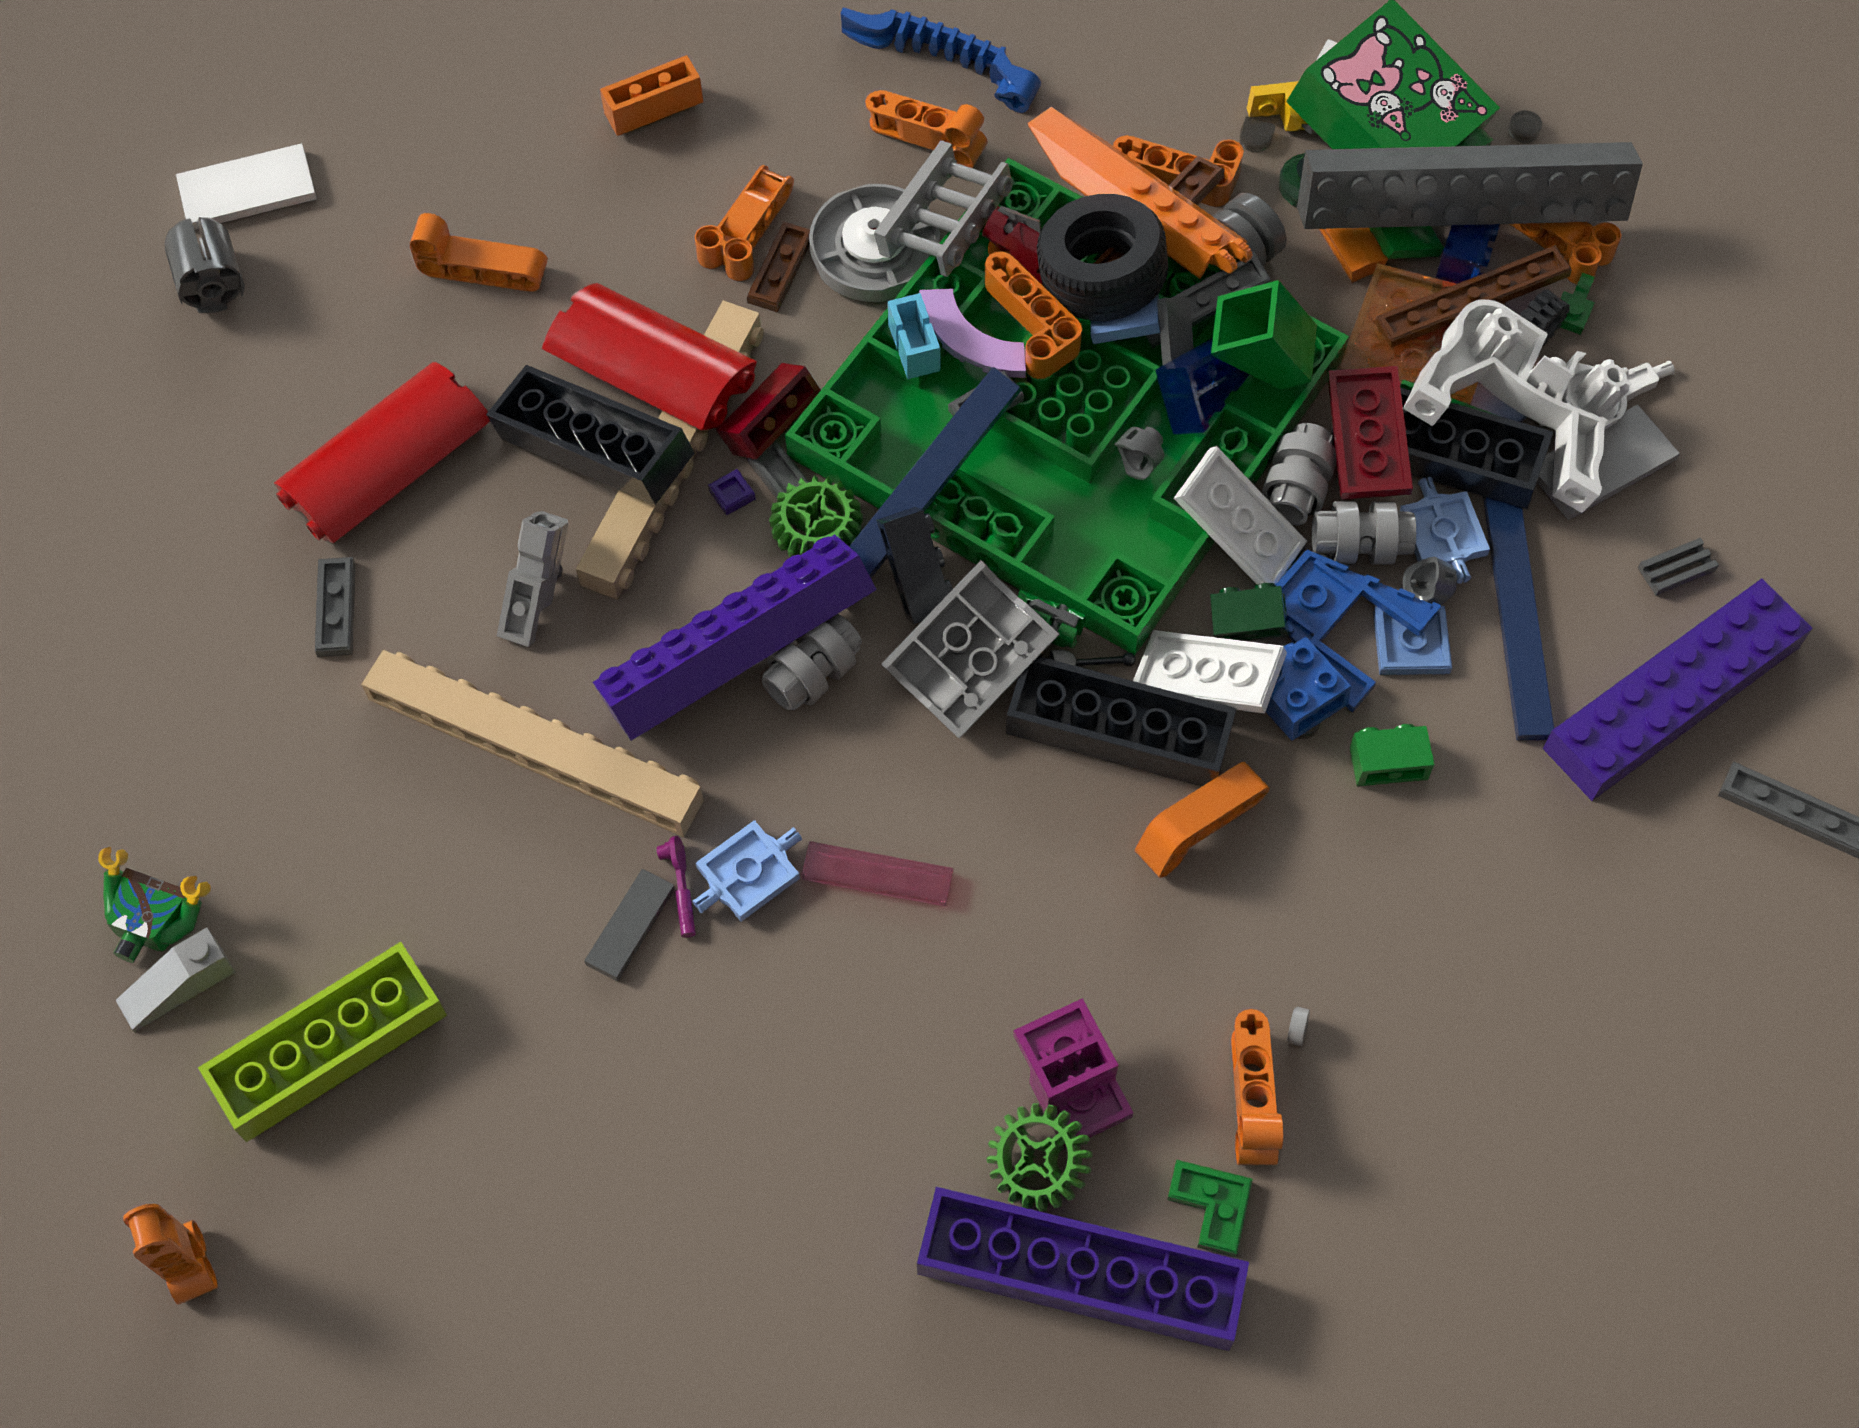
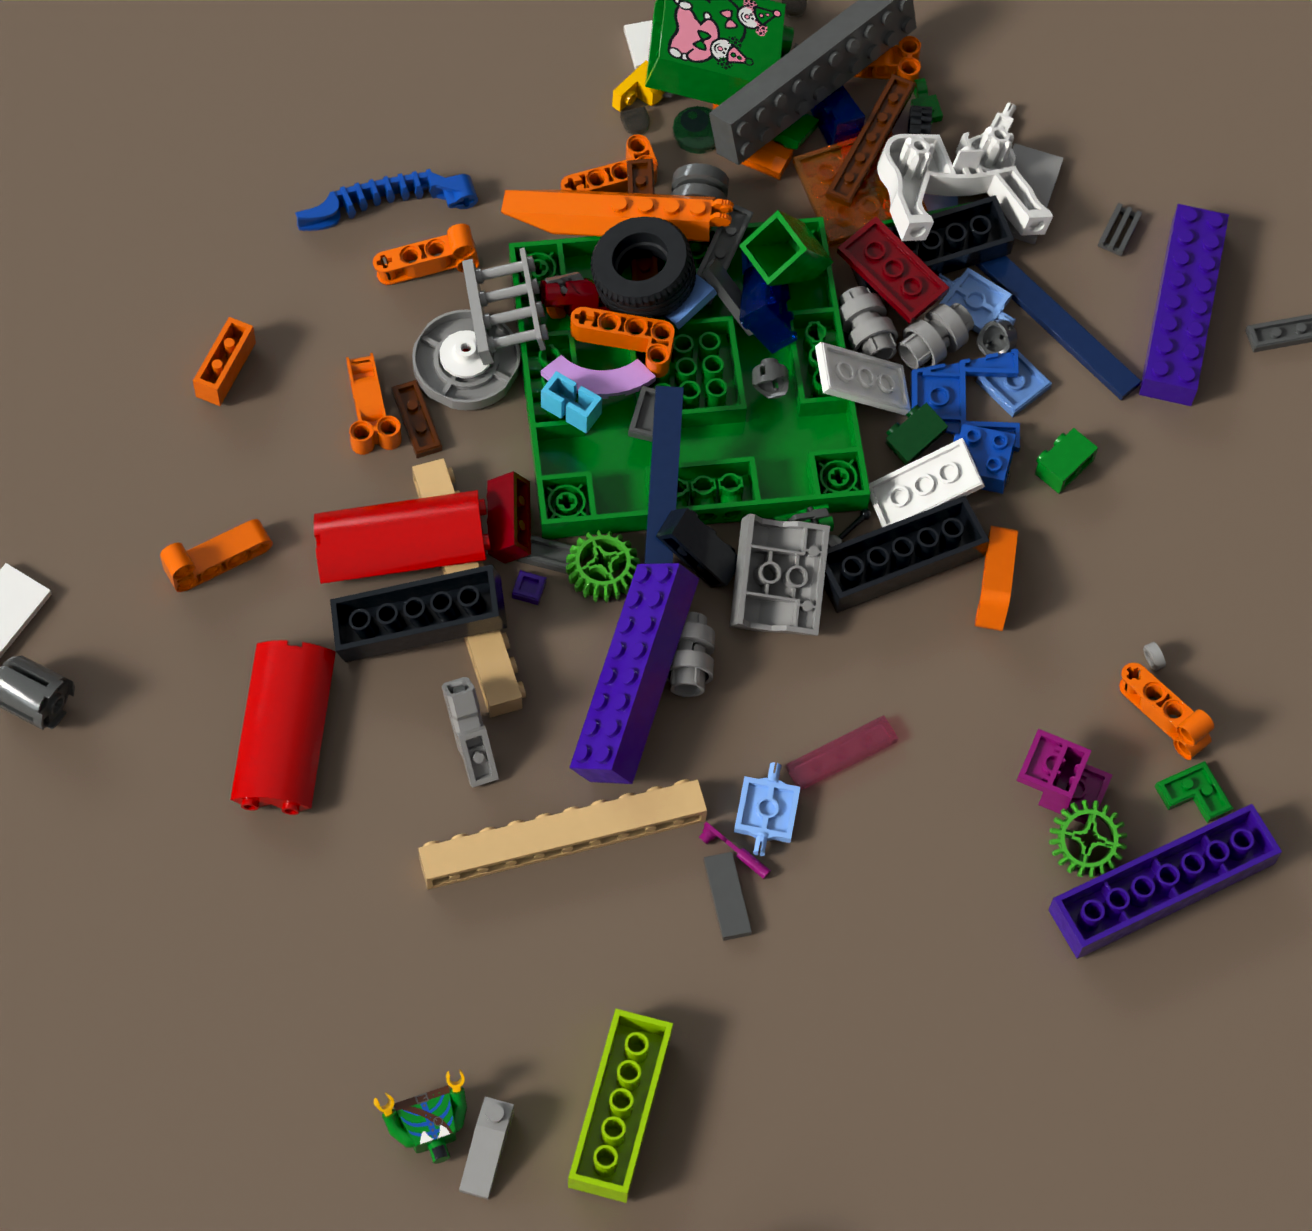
camera: 45 degrees left, 0 degrees up
(335, 607) = (347, 848): dark grey tile -> none

